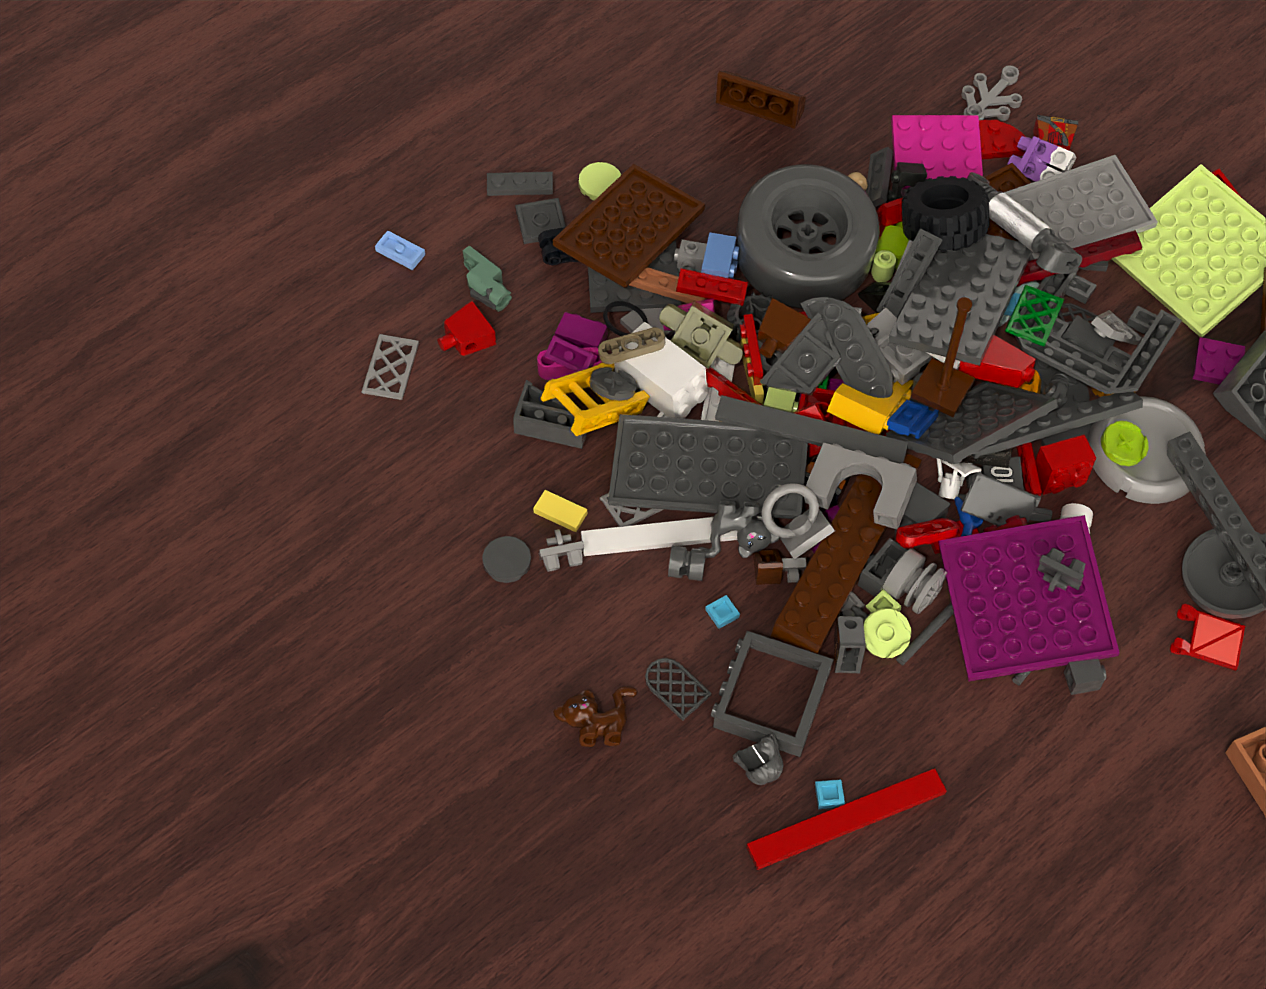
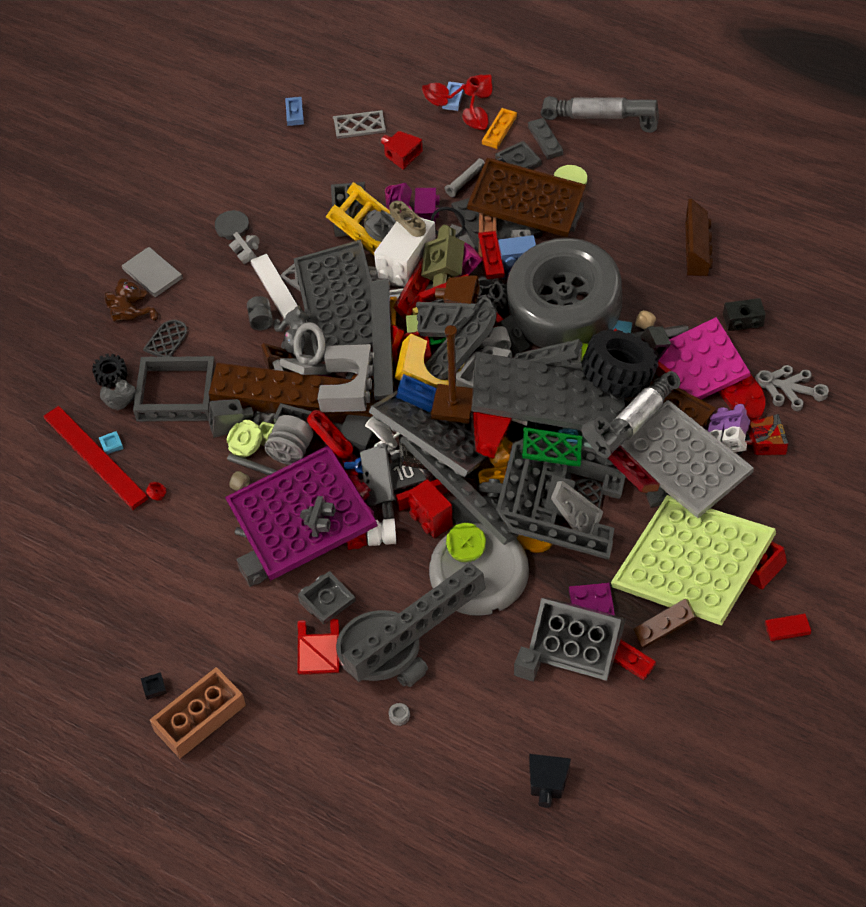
camera: 75 degrees right, 5 degrees down
(332, 430) = (294, 111): none -> medium blue plate
(396, 218) = (475, 86): none -> red plant
(478, 223) = (499, 128): none -> light orange tile
(485, 280) = (448, 144): sand green plate -> none
(511, 110) = (603, 108): none -> piece
(549, 282) = (464, 178): none -> light grey pin
(549, 676) = (152, 272): none -> light grey tile
(560, 511) = (280, 240): light yellow tile -> none
(710, 780) = (107, 363): none -> black tyre
(722, 611) = (233, 347): medium azure tile -> none
(881, 97) = (744, 314): none -> pearl dark grey brick
(930, 755) = (156, 491): none -> red tile
(949, 656) = (239, 480): none -> dark tan piece
(1151, 607) = (326, 597): none -> dark grey plate
(1222, 825) = (153, 686): none -> black plate

